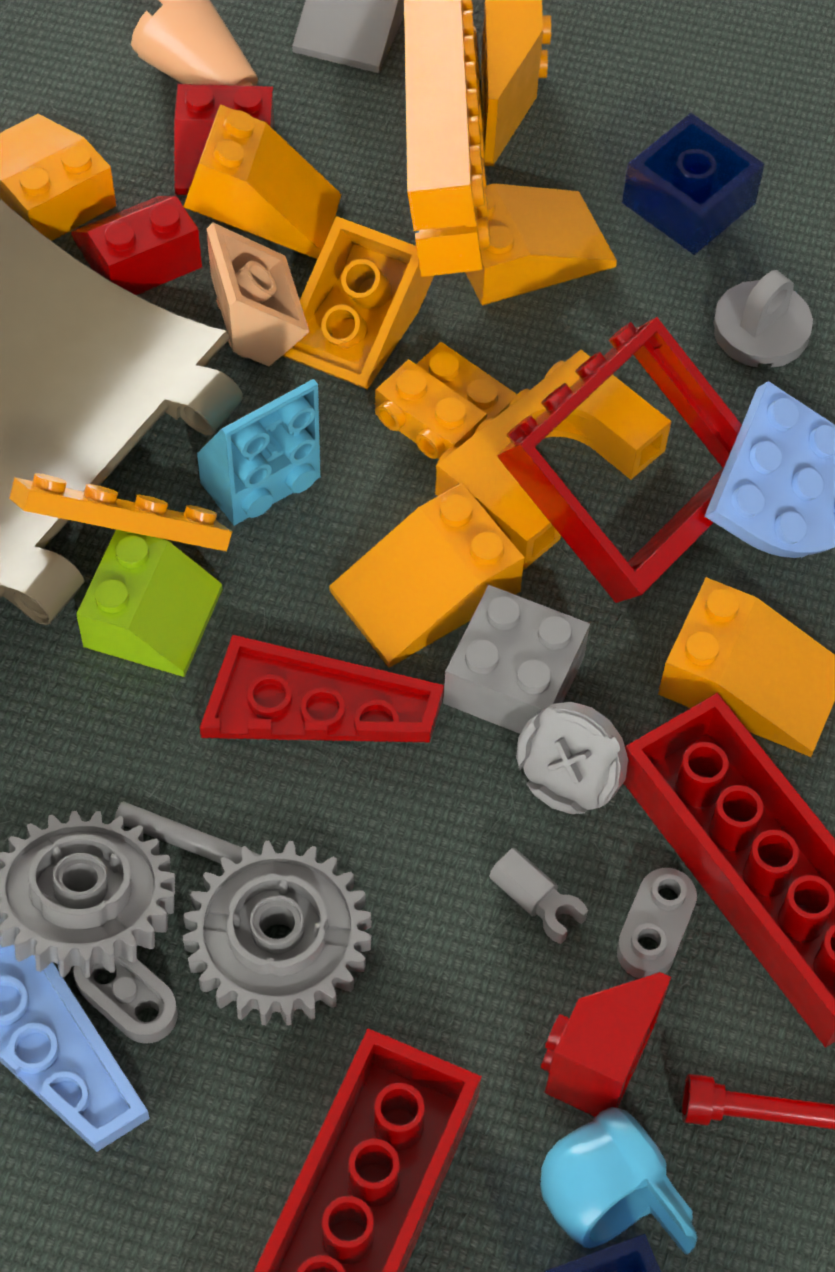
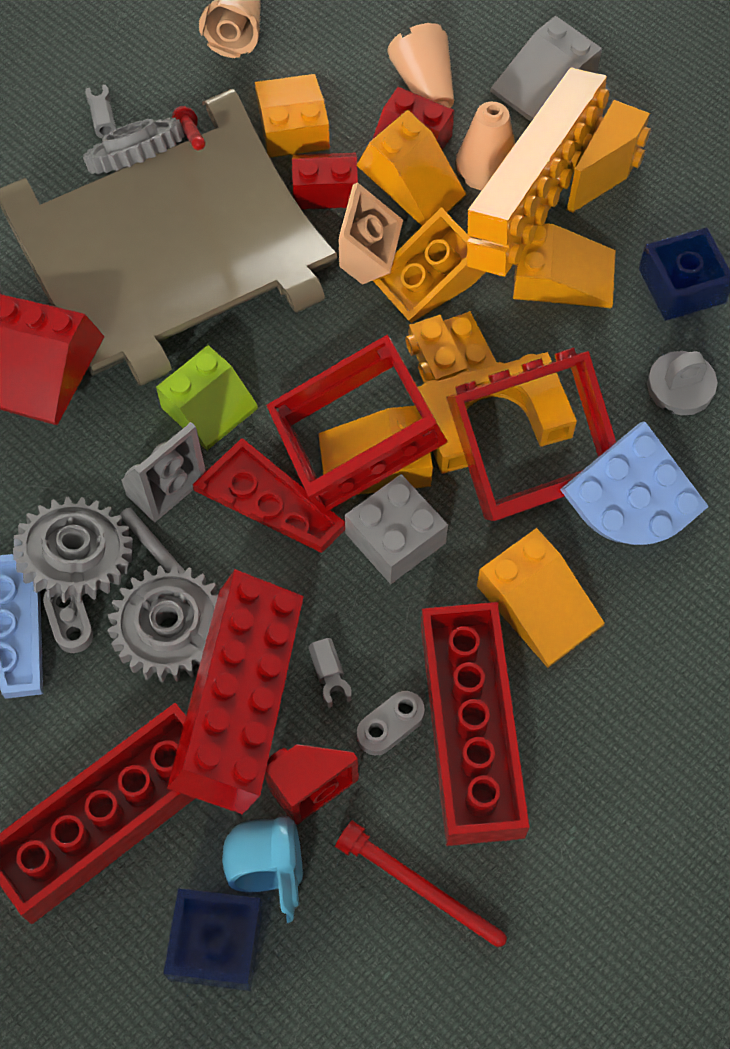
camera: 30 degrees right, 5 degrees up
(101, 508) = (201, 331): light orange plate -> none
(156, 724) = (166, 474): none -> light grey slope
(264, 455) = (316, 337): medium azure slope -> none
(344, 121) = (485, 144): none -> light nougat cone
(450, 585) = (378, 460): none -> red window
(451, 974) = (237, 694): none -> red brick
(572, 757) = (394, 600): light grey tile -> none

